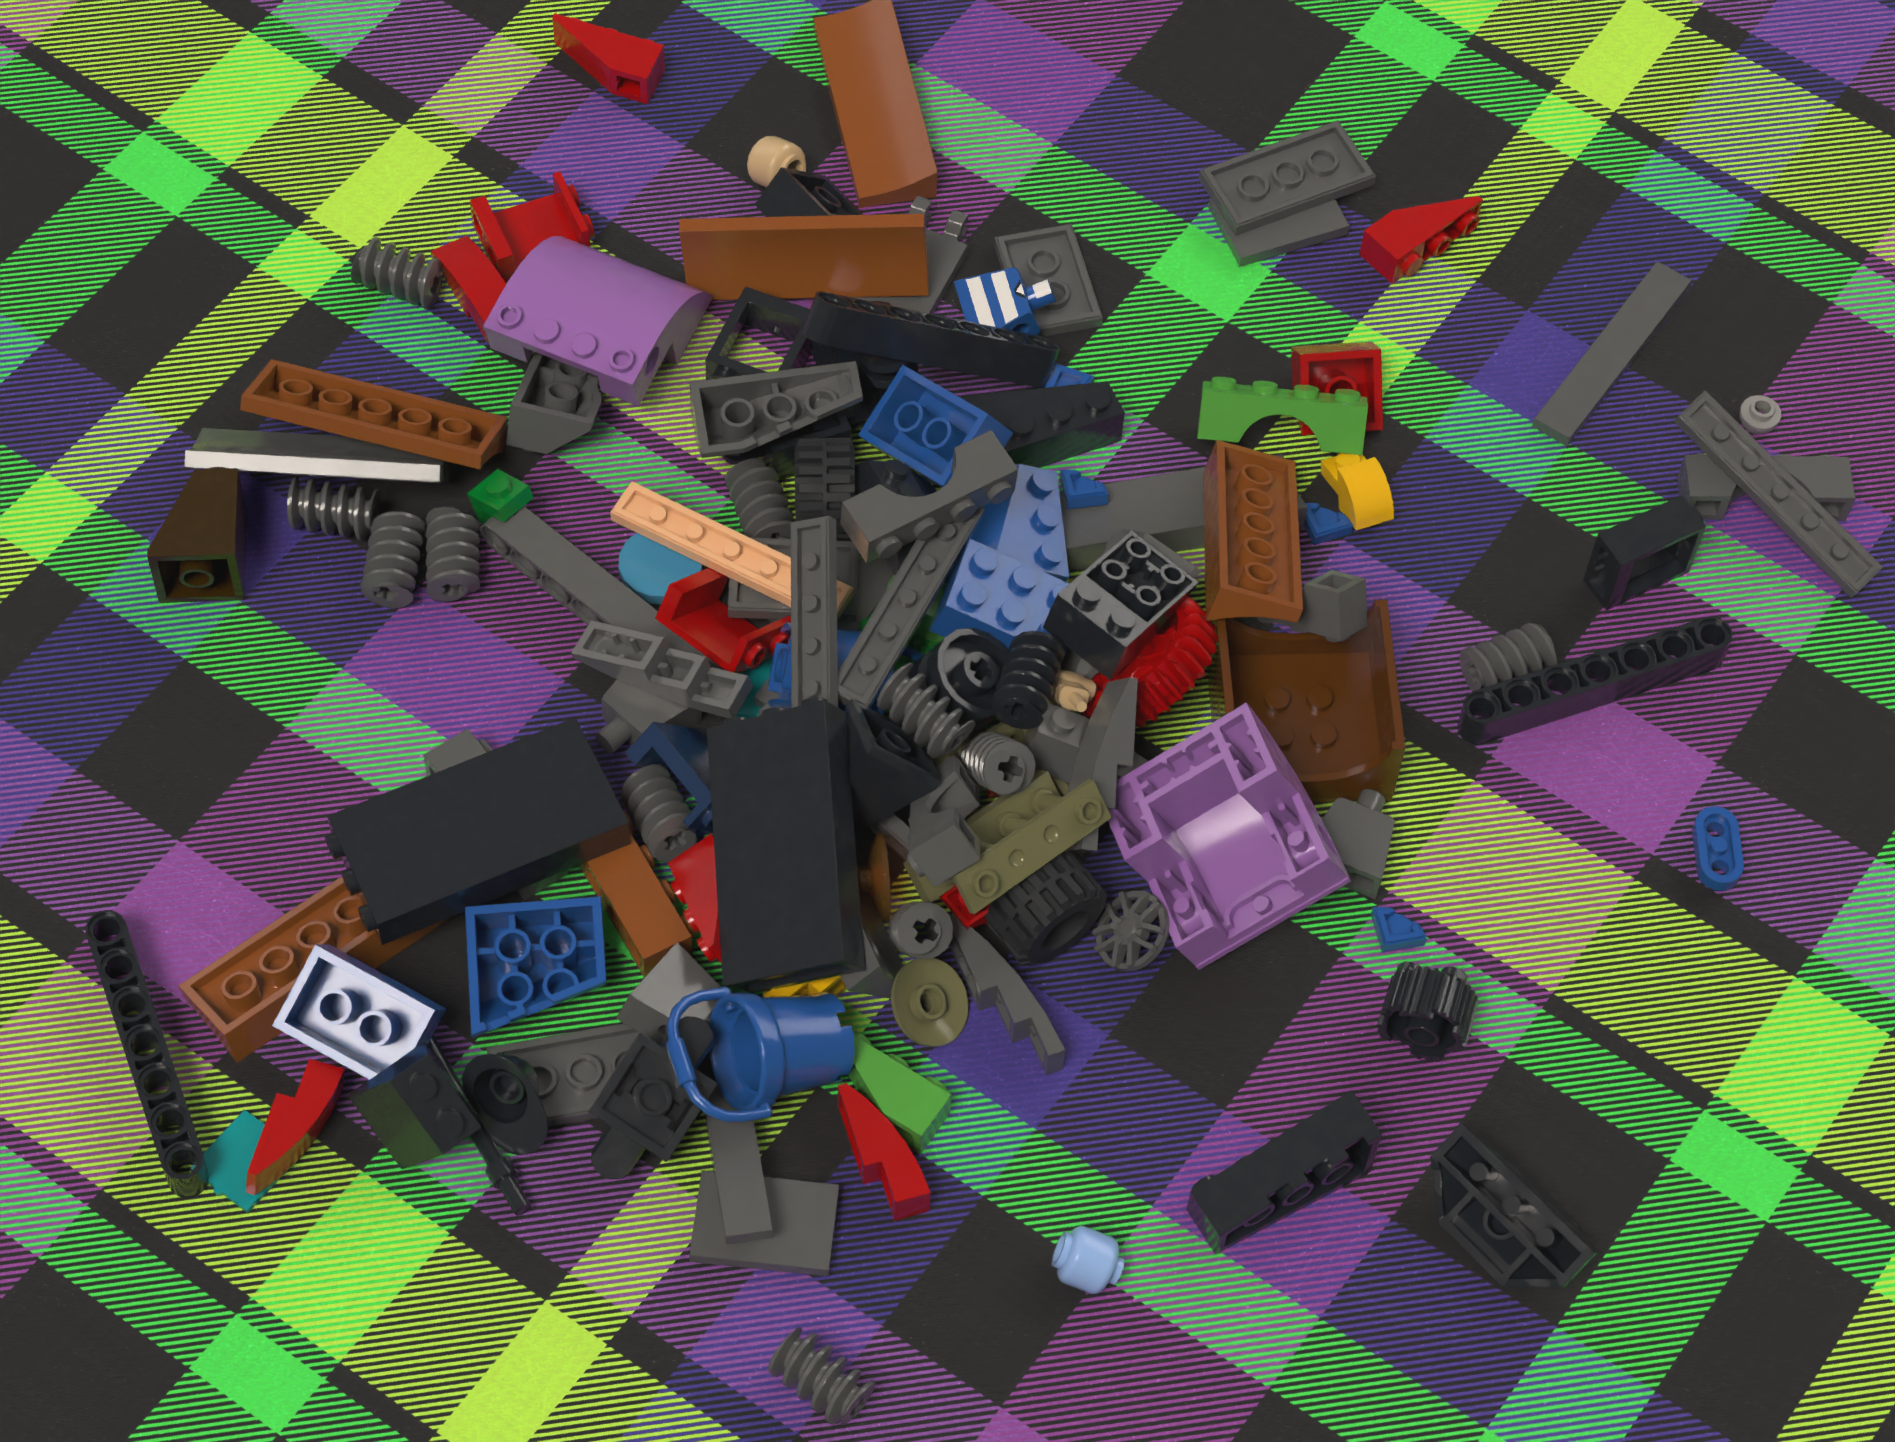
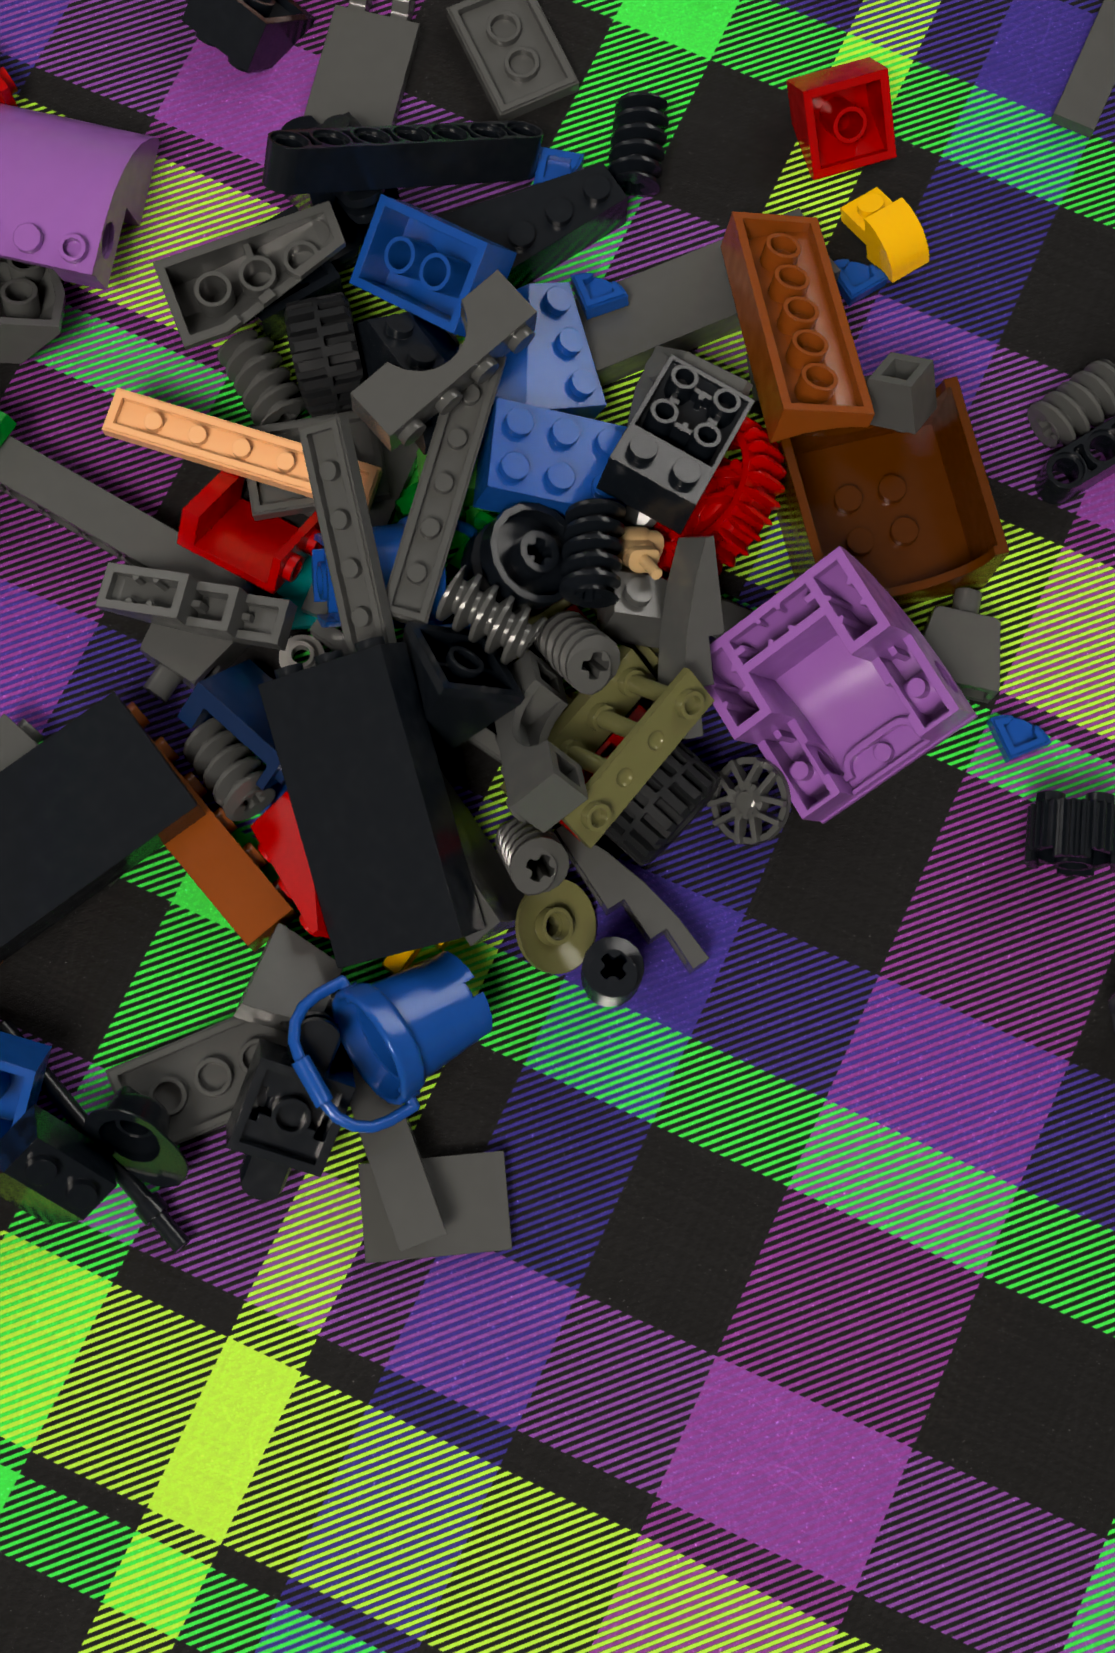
camera: 10 degrees left, 20 degrees up
(531, 957) = (130, 971): blue wedge -> none
(651, 567) = (164, 480): dark azure tile -> none
(765, 314) = (225, 150): black window -> none
(807, 255) = (249, 74): dark orange arch -> none
(819, 1378) = (531, 1377): dark grey piece -> none
(876, 877) = (471, 799): clear orange dish -> none
(883, 1155) = (541, 1108): red slope -> none
(905, 1098) = (545, 1042): bright green slope -> none
(972, 1044) = (612, 953): none -> black piece
(1004, 300) = (471, 86): blue torso -> none
(1087, 1259) = (775, 1184): light blue head -> none
(1145, 374) = (638, 143): none -> black piece
(1232, 408) = (741, 165): bright green arch -> none
(1286, 1174) = (959, 1048): black wedge -> none

